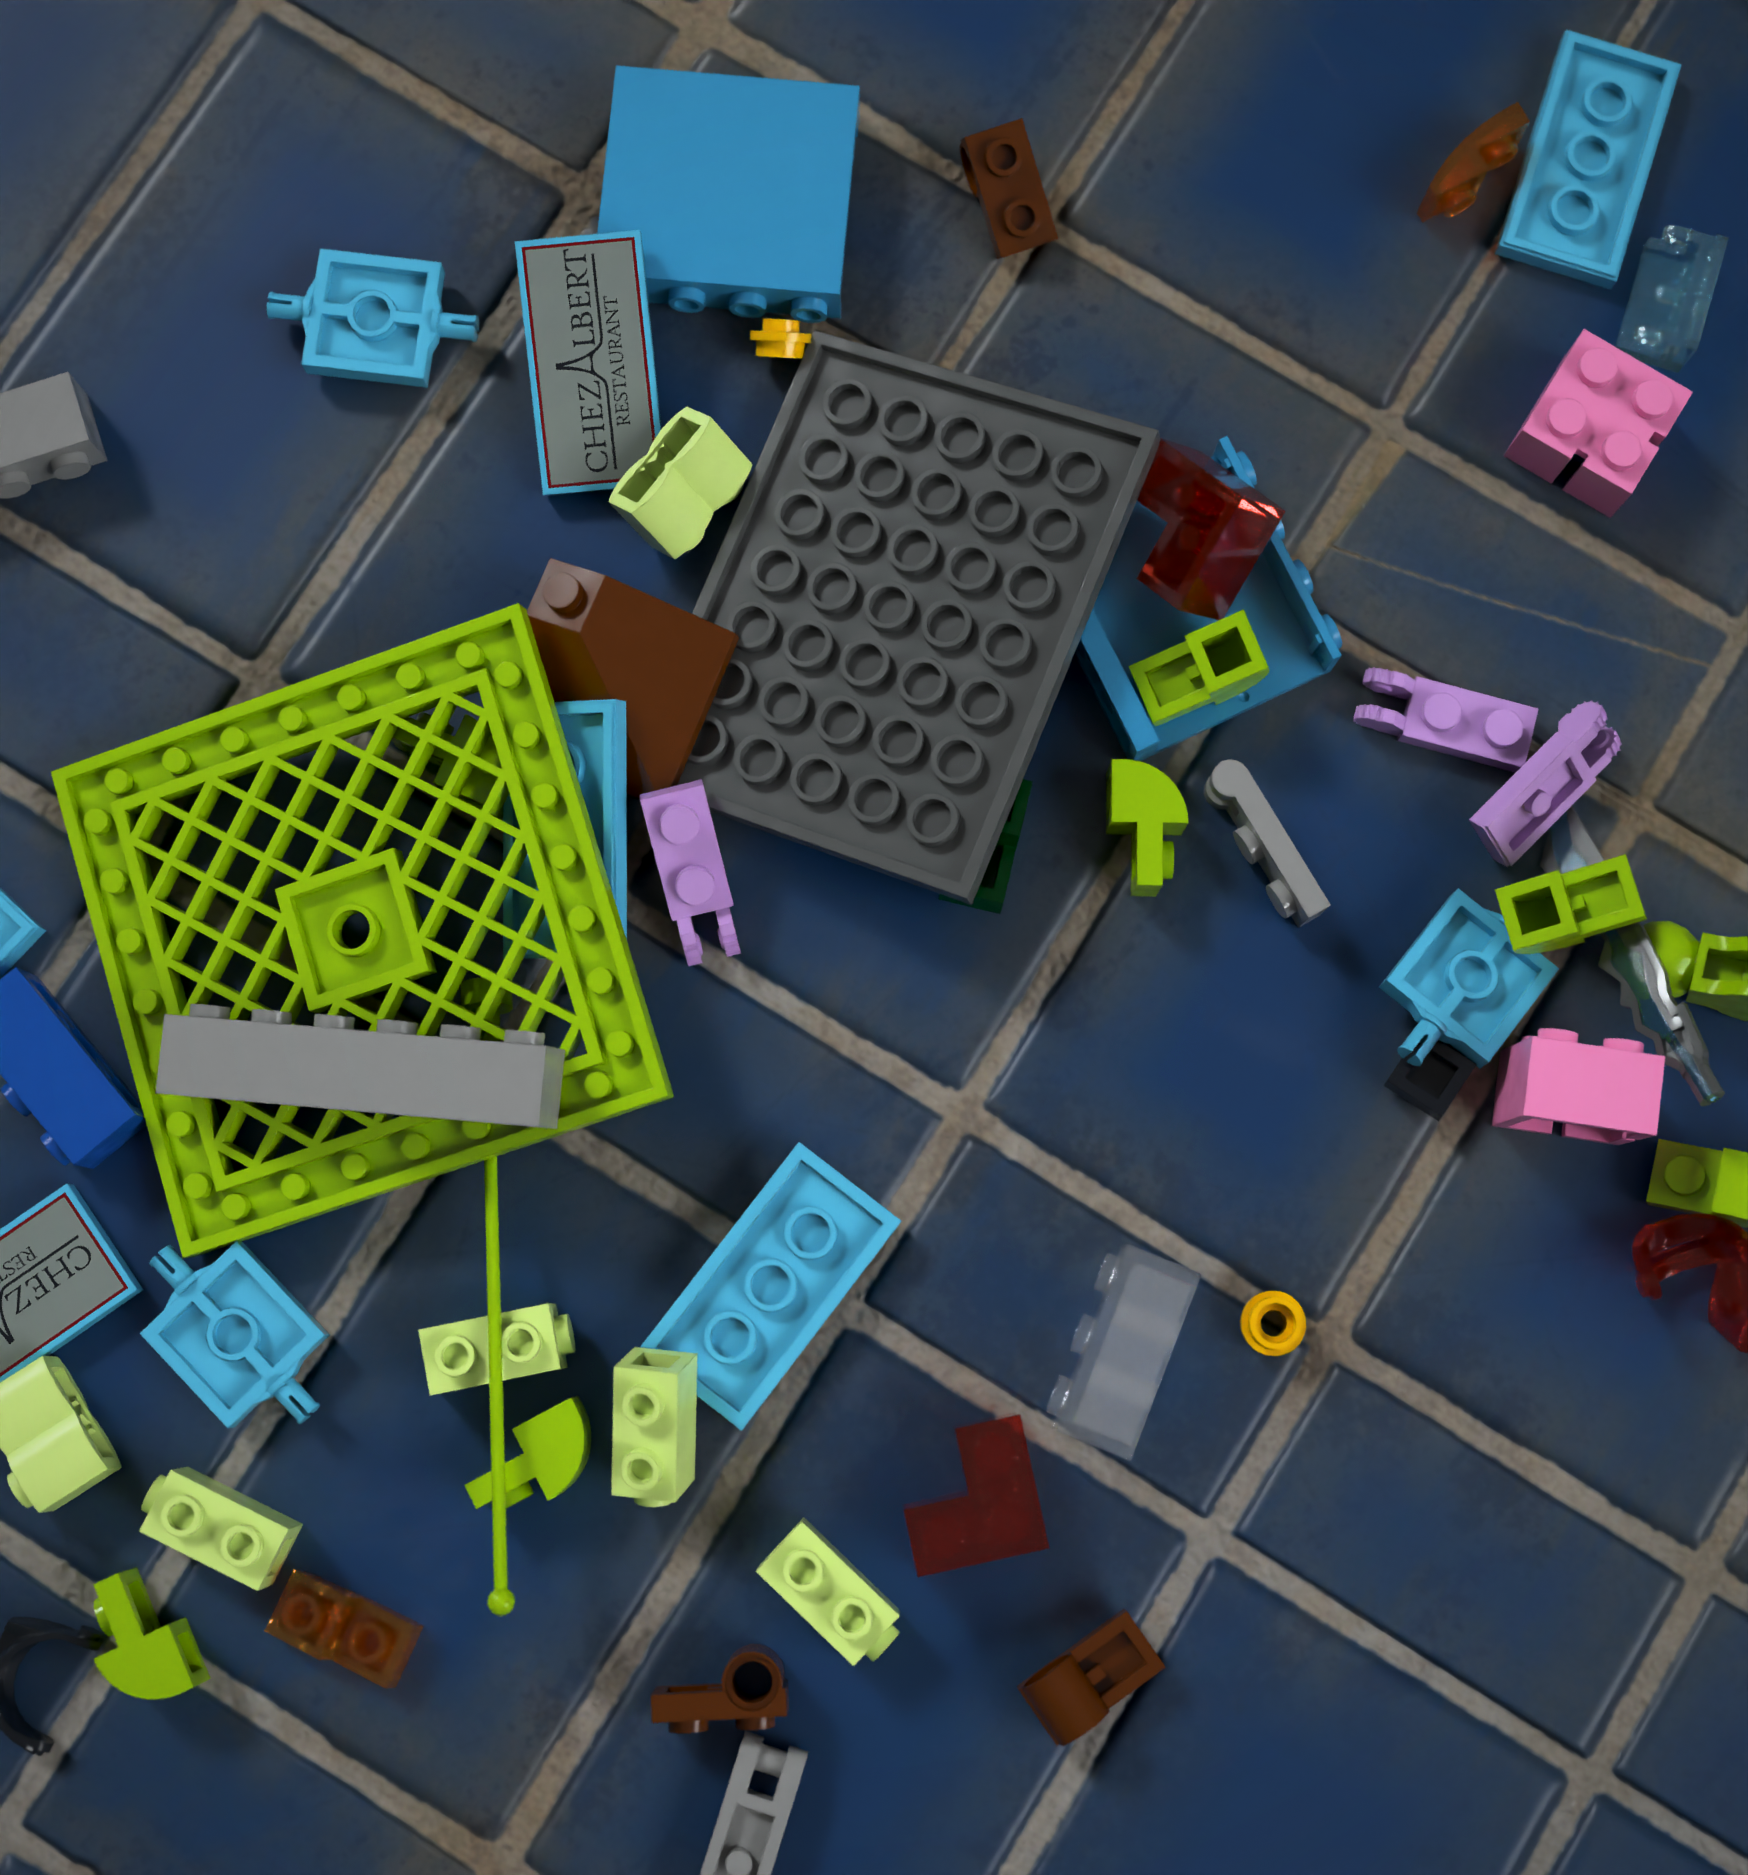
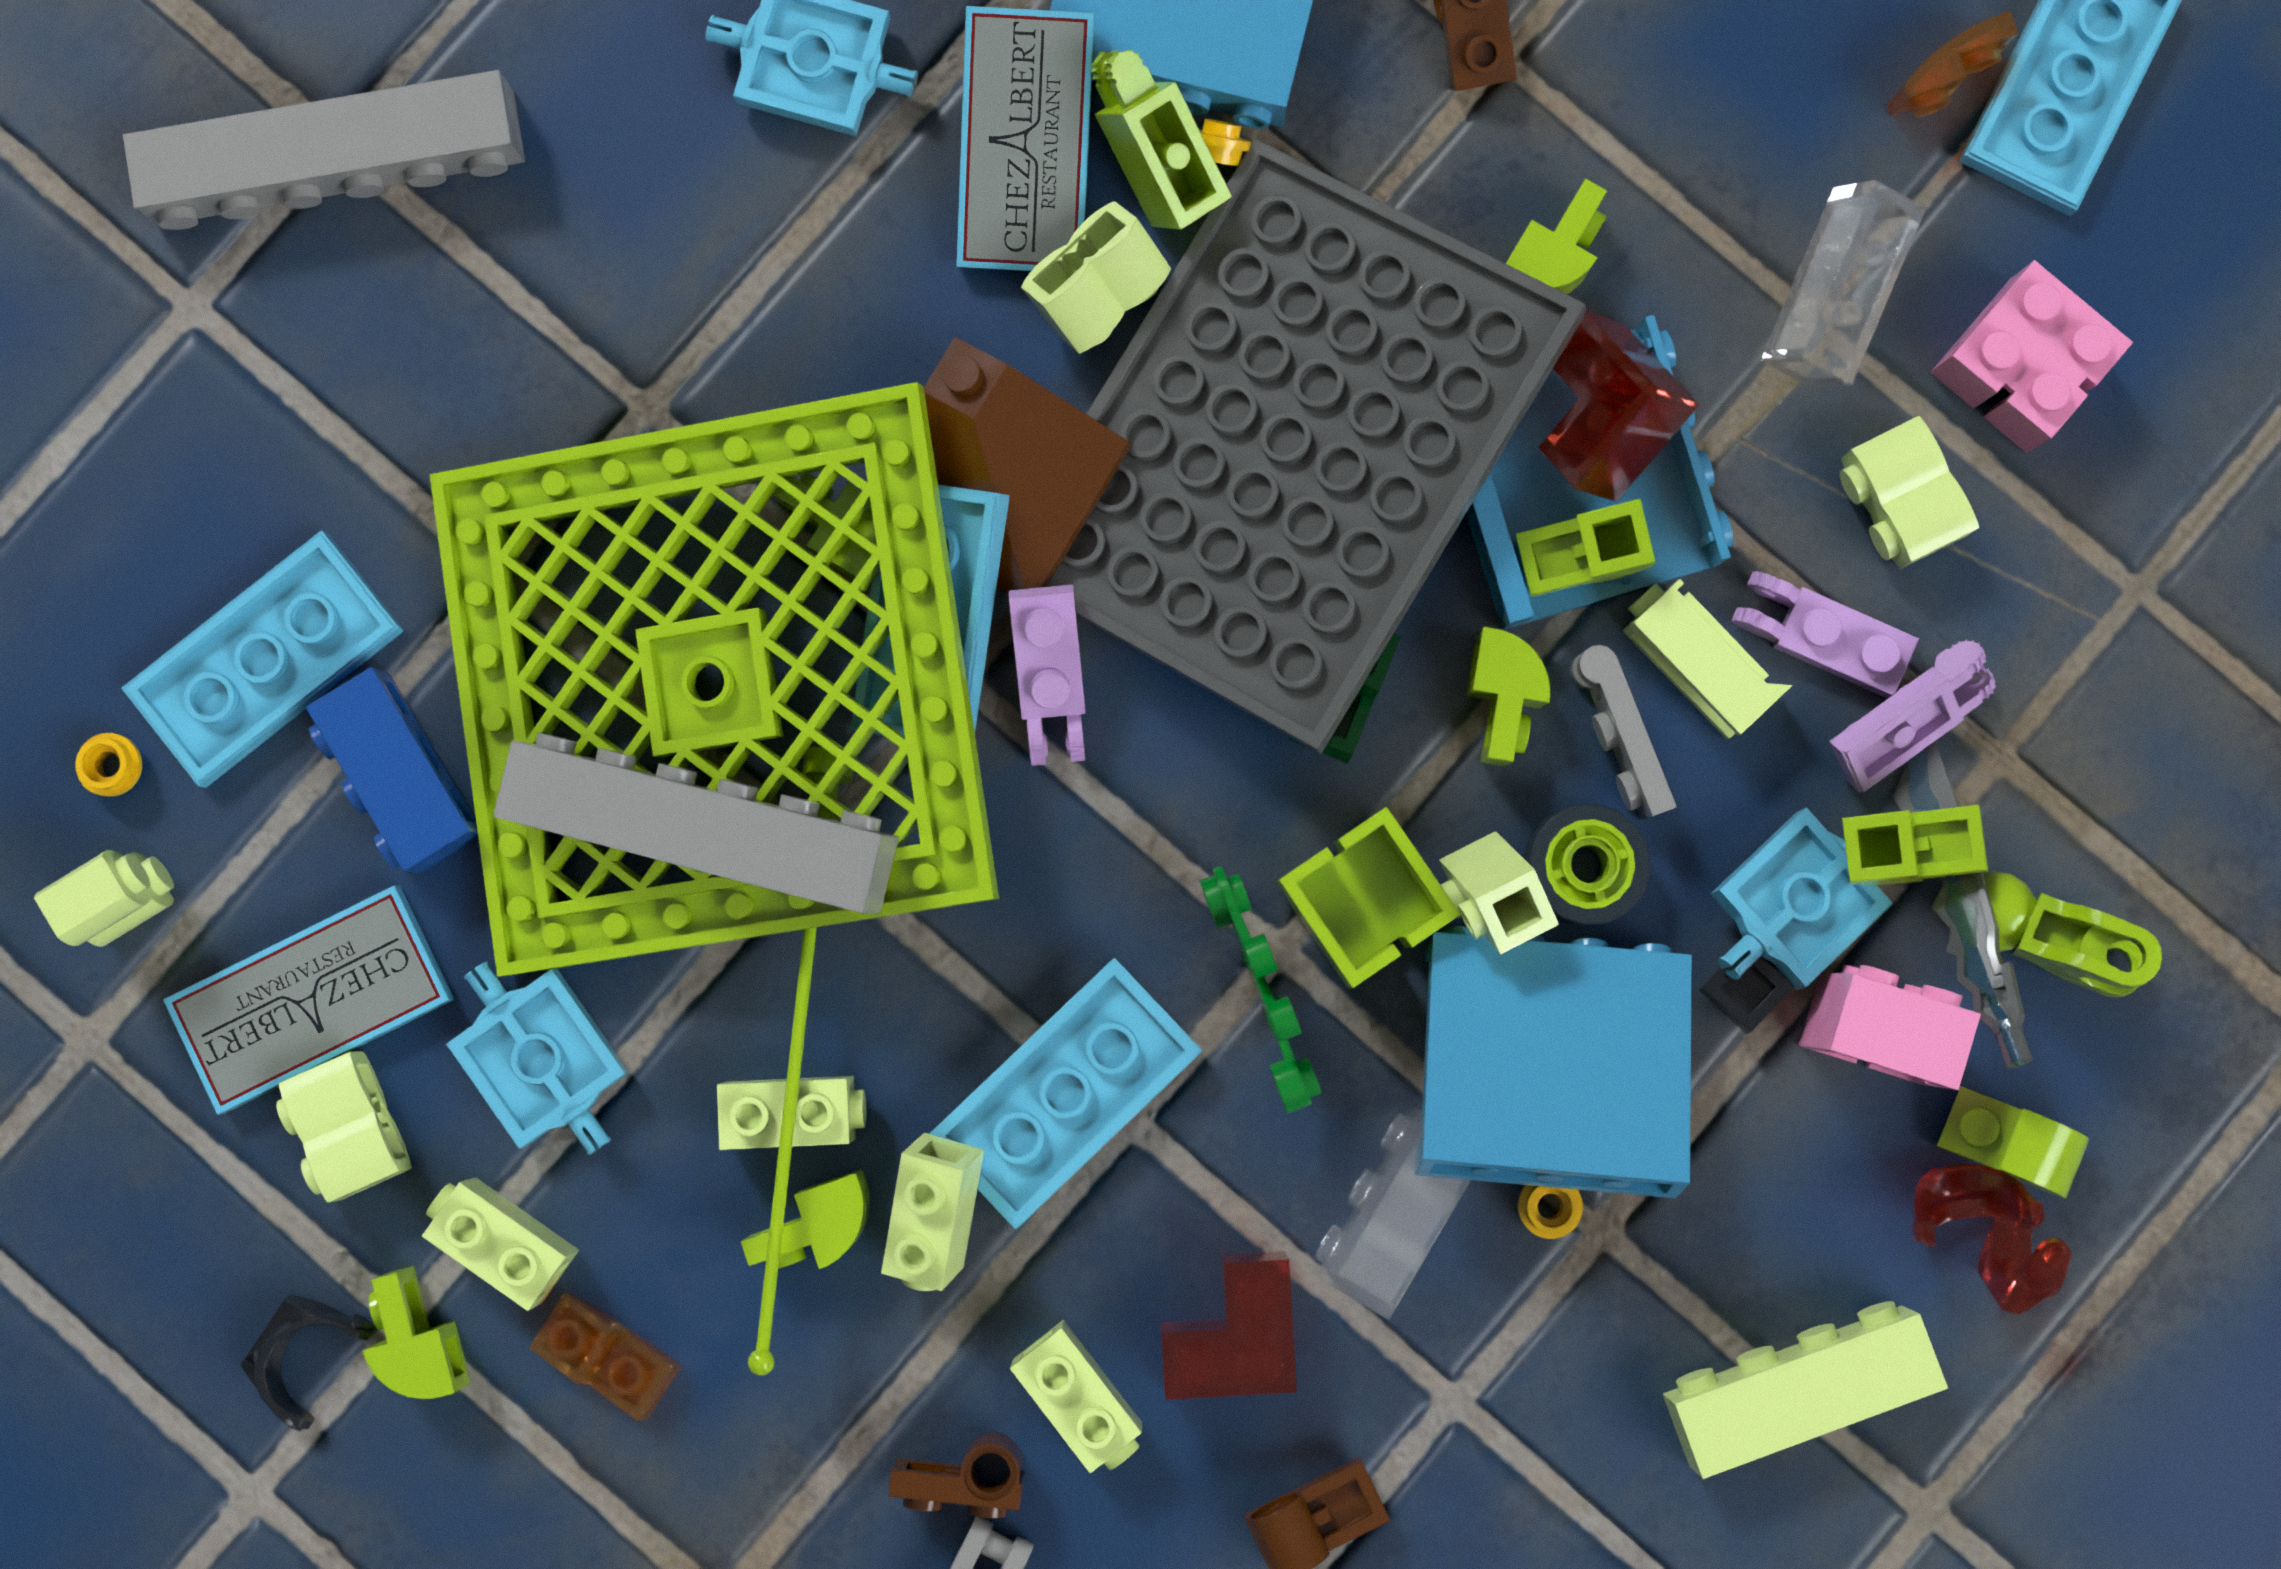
camera: 10 degrees right, 5 degrees up
(718, 344) = (1156, 142): none -> lime hinge
(901, 1066) = (1227, 902): none -> green plant
(1040, 1041) = (1367, 898): none -> lime piece
(1131, 390) = (1554, 255): none -> lime brick
(1167, 1016) = (1497, 893): none -> yellowish green brick
(1255, 1177) = (1557, 1065): none -> dark azure panel
(1281, 957) = (1621, 856): none -> wheel
(1330, 760) = (1701, 659): none -> yellowish green window
(1405, 381) = (1843, 284): none -> clear brick
(1502, 571) = (1908, 493): none -> yellowish green brick
(1557, 1467) = (1803, 1389): none -> yellowish green brick
(1671, 297) = (2129, 236): clear light blue hinge -> none

